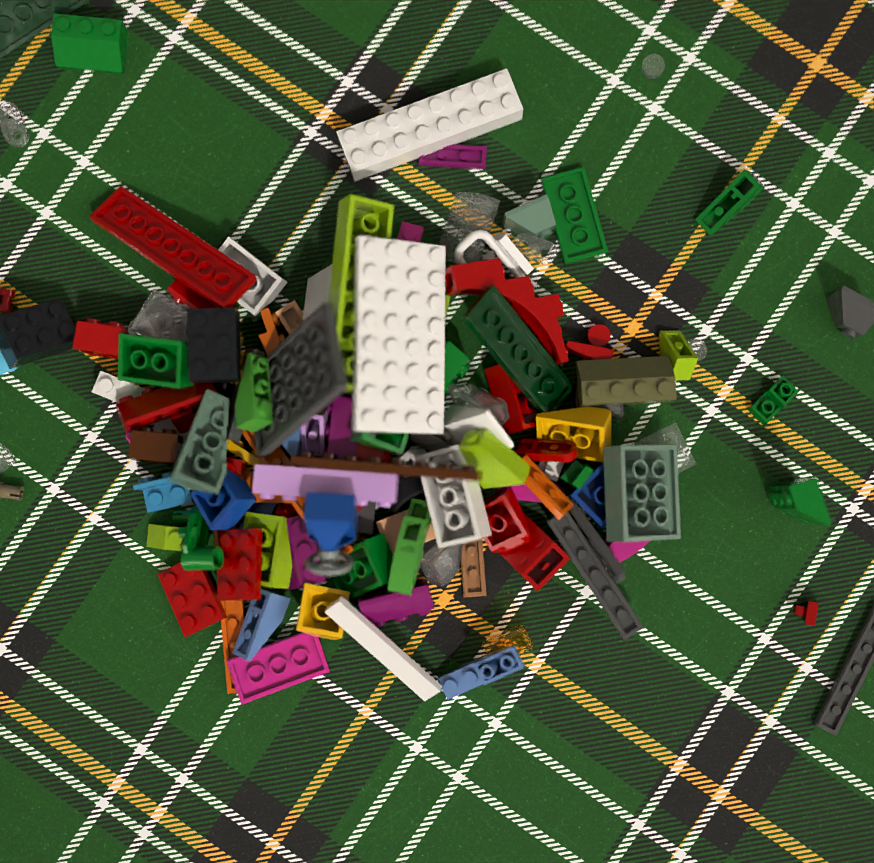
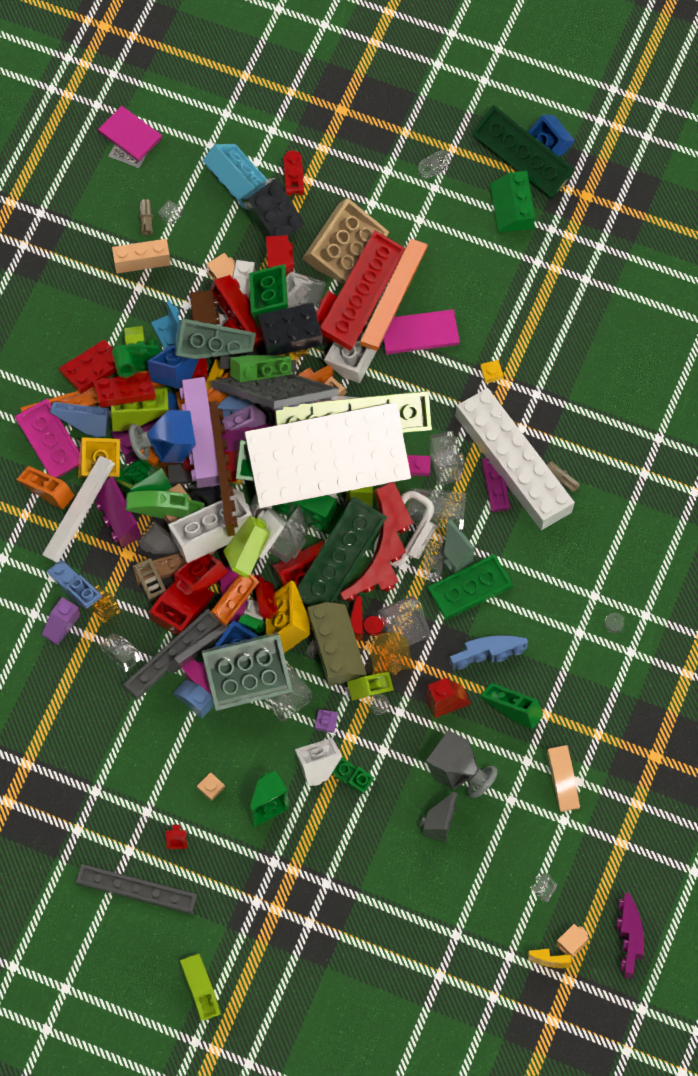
camera: 80 degrees right, 20 degrees down
(54, 507) = (141, 256): none -> light nougat brick
(93, 258) = (342, 241): none -> tan slope
(98, 412) = (220, 267): none -> light nougat slope
(186, 213) = (393, 295): none -> orange tile
(235, 195) = (421, 332): none -> dark pink tile
(307, 125) = (491, 371): none -> yellow plate
(339, 681) = (46, 486): none -> orange slope
(414, 201) = (446, 457): none -> clear brick
(463, 76) = (563, 477): none -> dark tan axle
(507, 577) = (142, 565): none -> dark tan slope
(516, 695) = (60, 621): none -> medium lavender slope
(567, 633) = (120, 651): none -> clear slope
(604, 298) = (407, 619): none -> clear slope
(642, 322) = (390, 653): none -> clear yellow piece
(645, 560) = (194, 698): none -> medium blue slope
(658, 205) = (494, 647): none -> medium blue slope
(702, 414) = (326, 721): none -> medium lavender tile
(712, 272) = (446, 697): none -> red slope
(750, 432) = (318, 761): none -> white slope
(752, 561) = (210, 786): none -> light nougat plate
(799, 278) = (455, 763): none -> dark grey piece
(827, 167) = (563, 778): none -> light nougat slope

